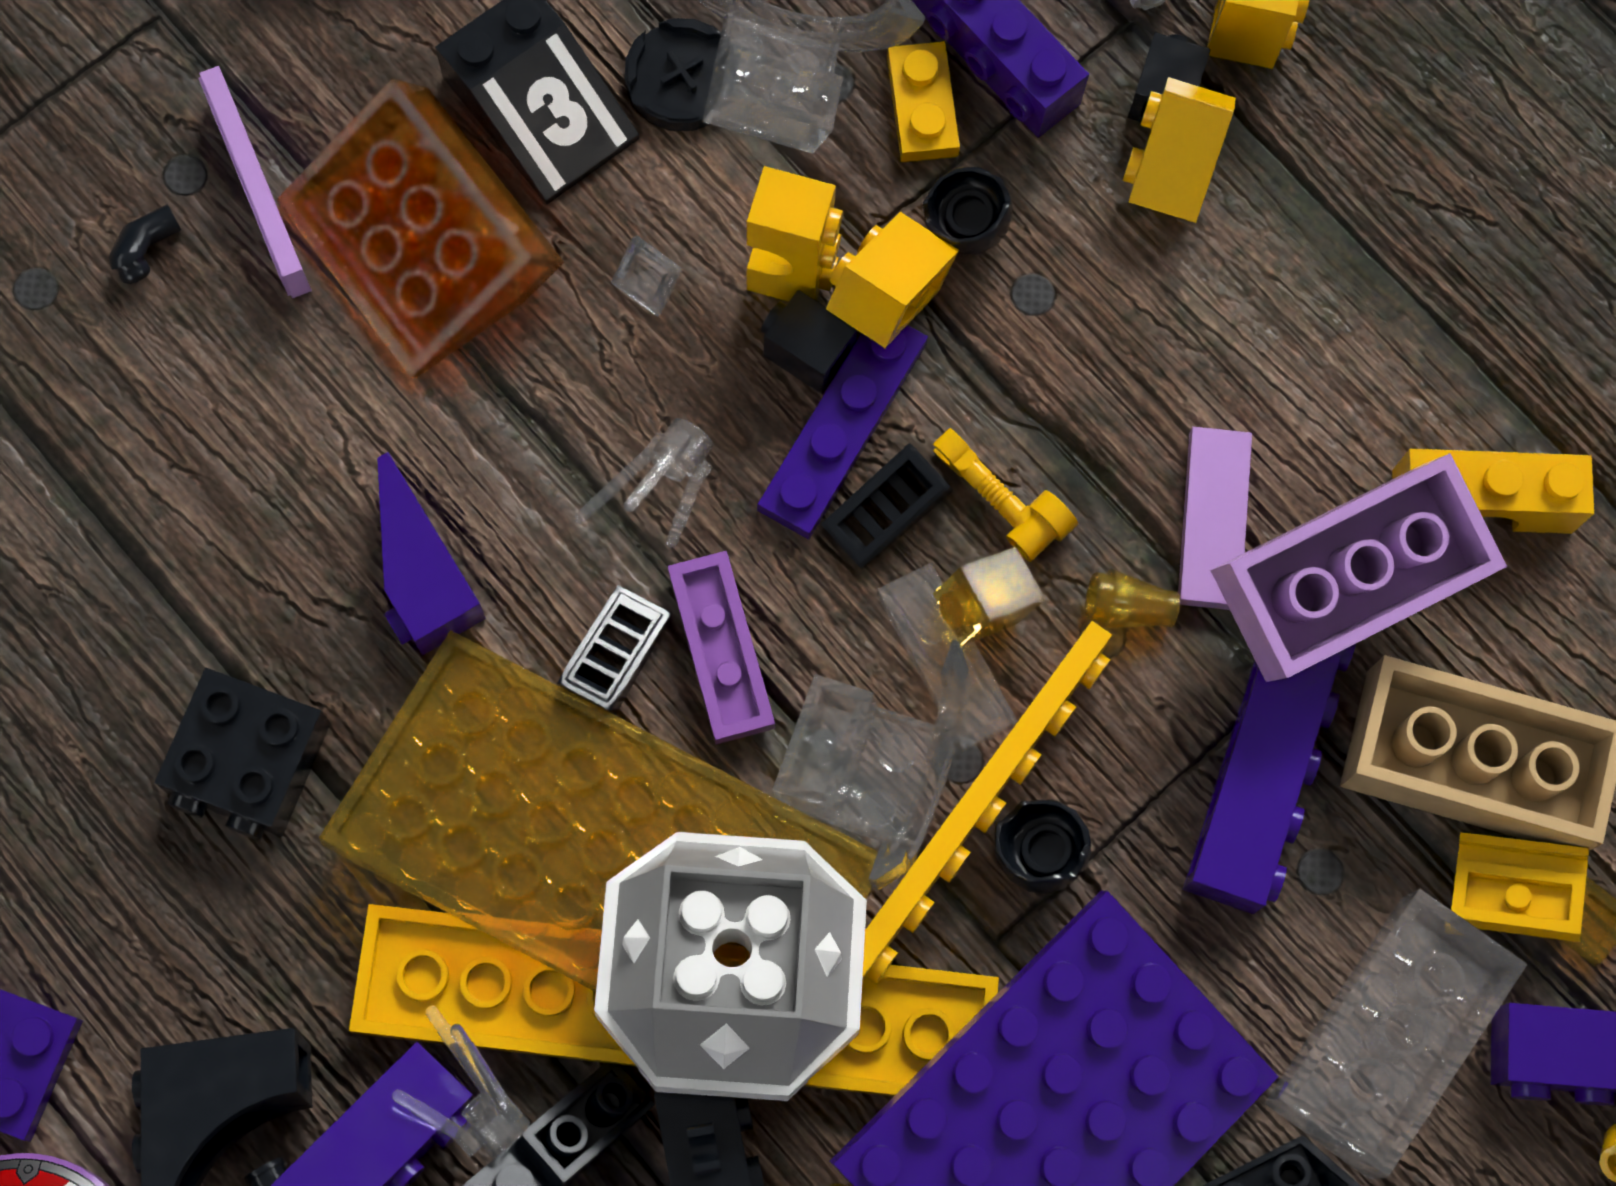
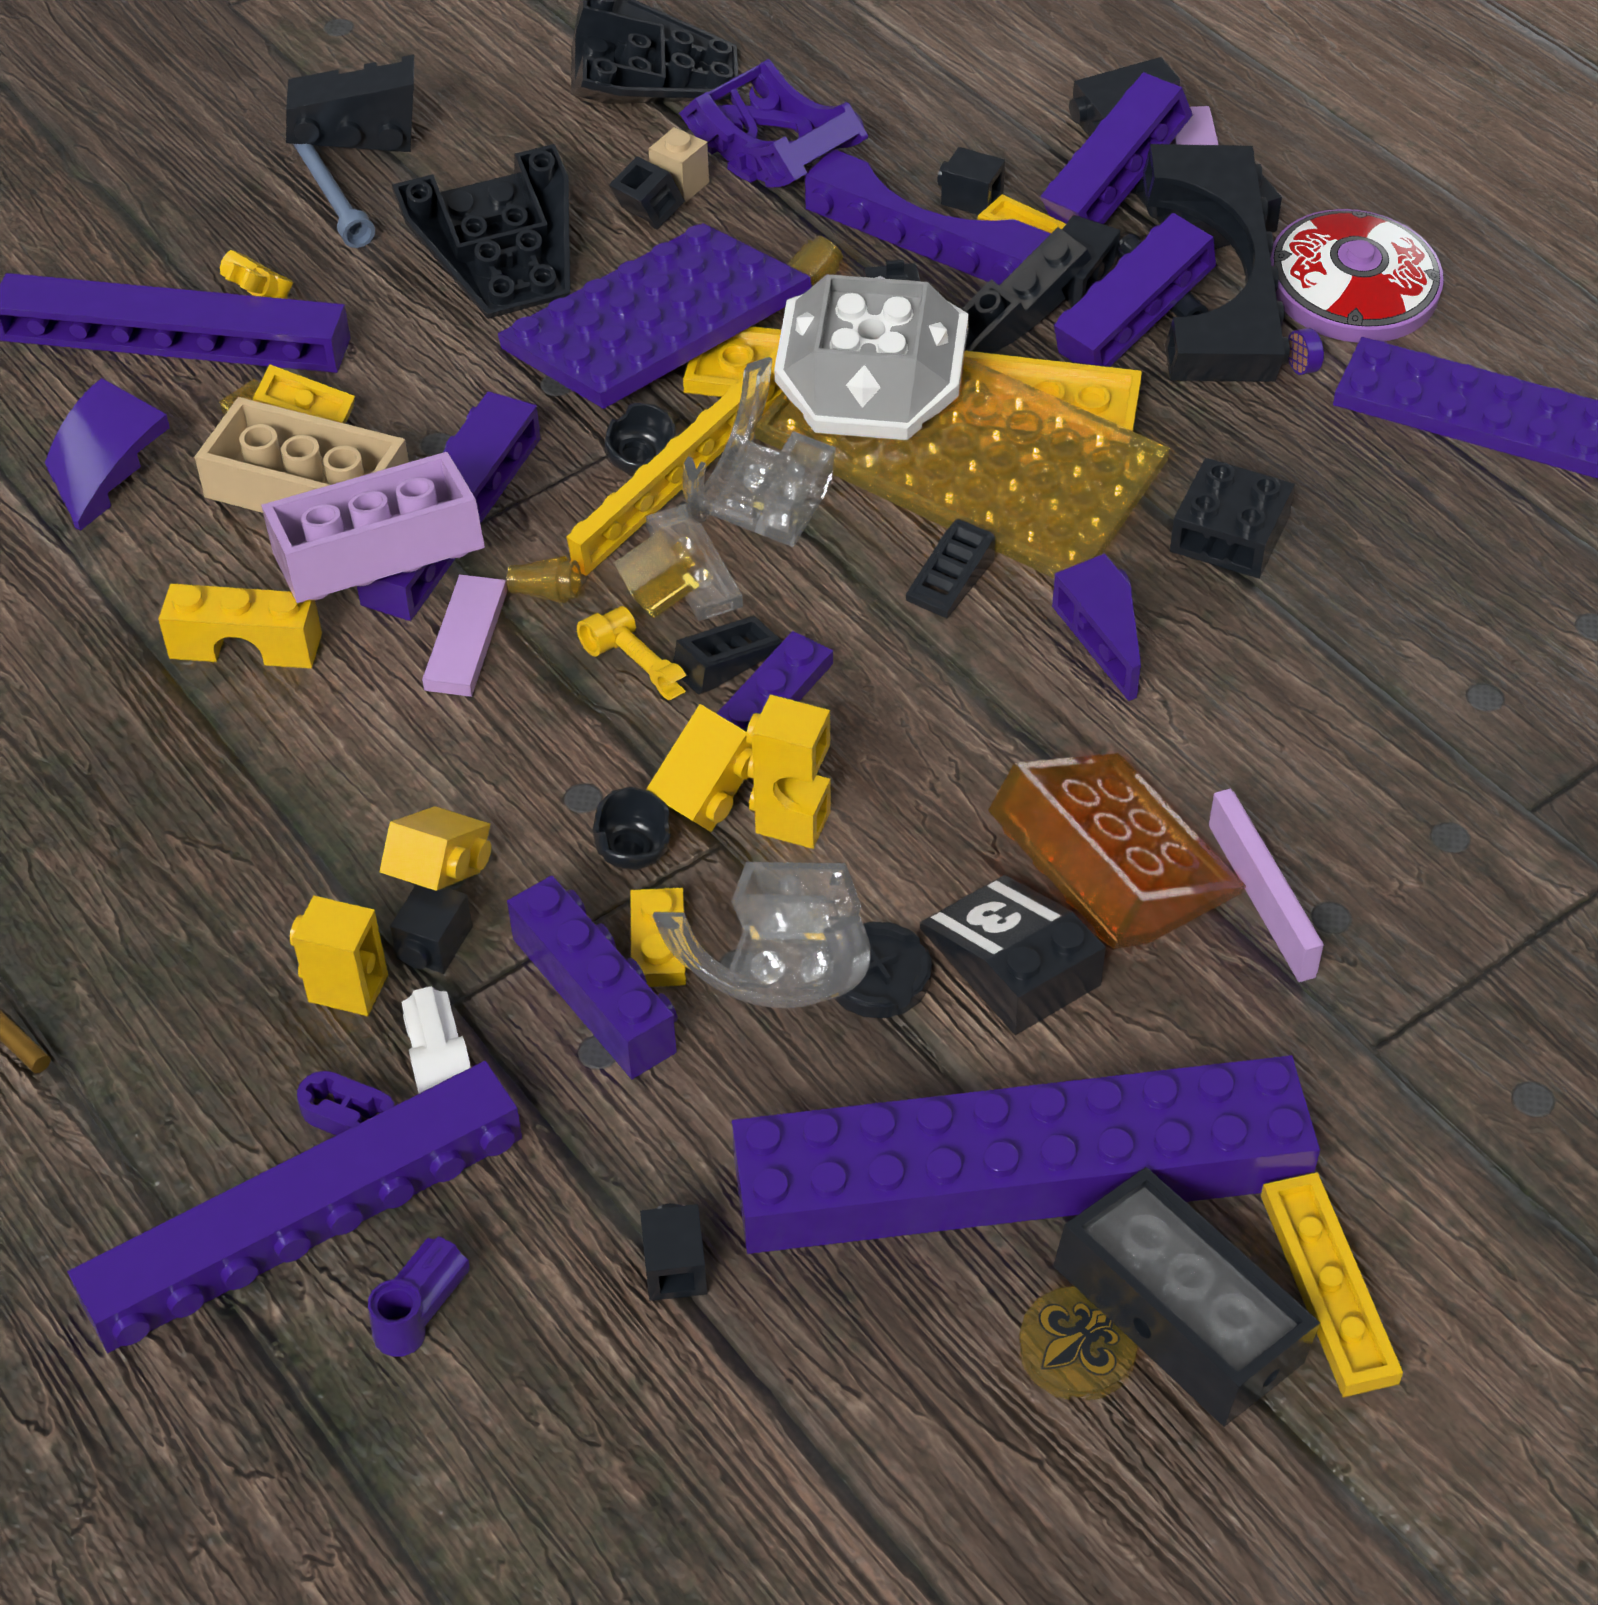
camera: 170 degrees left, 25 degrees down
(109, 1096) = (1305, 351): none -> dark purple tile
(135, 240) = (1366, 854): black arm -> none
(491, 1116) = (1043, 311): clear plant -> none
(647, 275) = (912, 810): clear slope -> none
(674, 454) = (896, 680): clear plant -> none
(721, 647) = (868, 567): medium lavender plate -> none
(1395, 1034) = (413, 335): clear brick -> none

